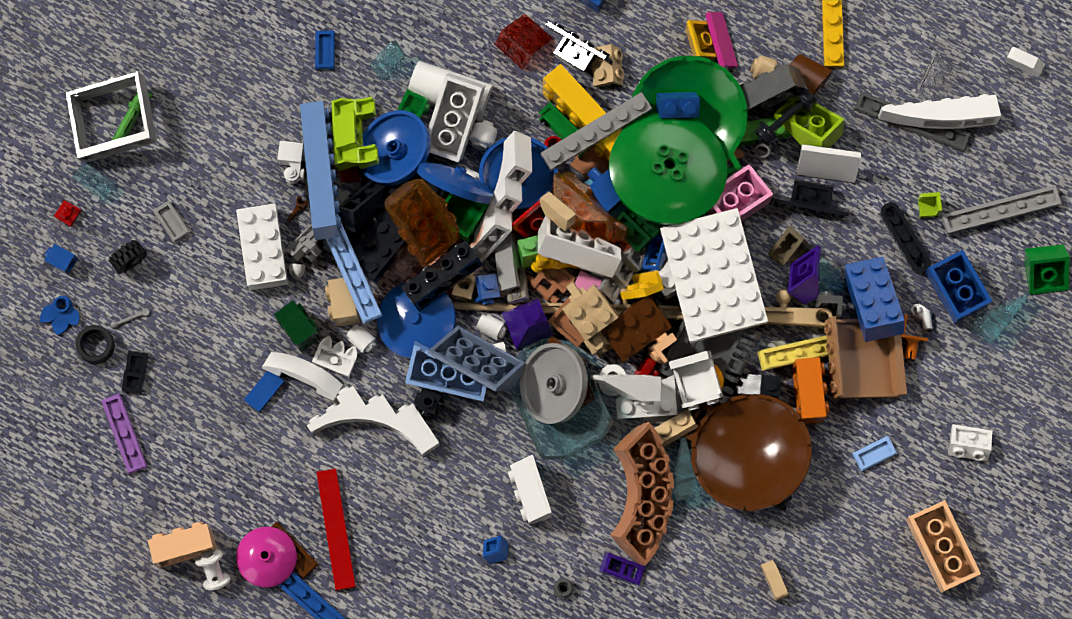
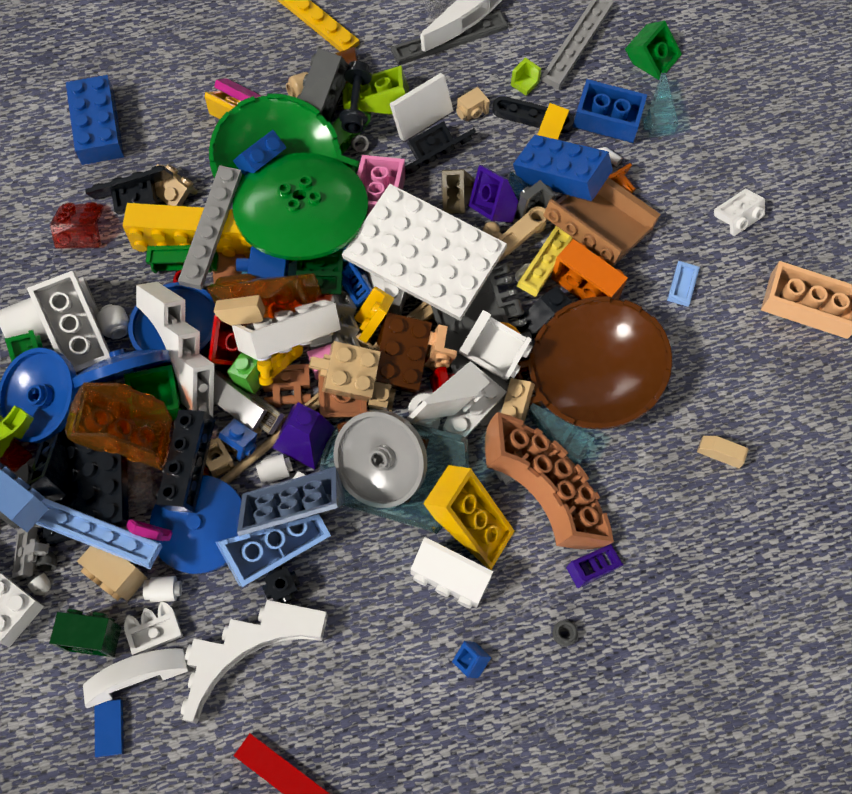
camera: 50 degrees left, 10 degrees down
(382, 299) = (148, 530): none -> dark pink tile
(573, 468) = (469, 514): none -> yellow slope
(868, 192) = (472, 105): none -> tan brick
(905, 260) = (553, 121): none -> yellow slope

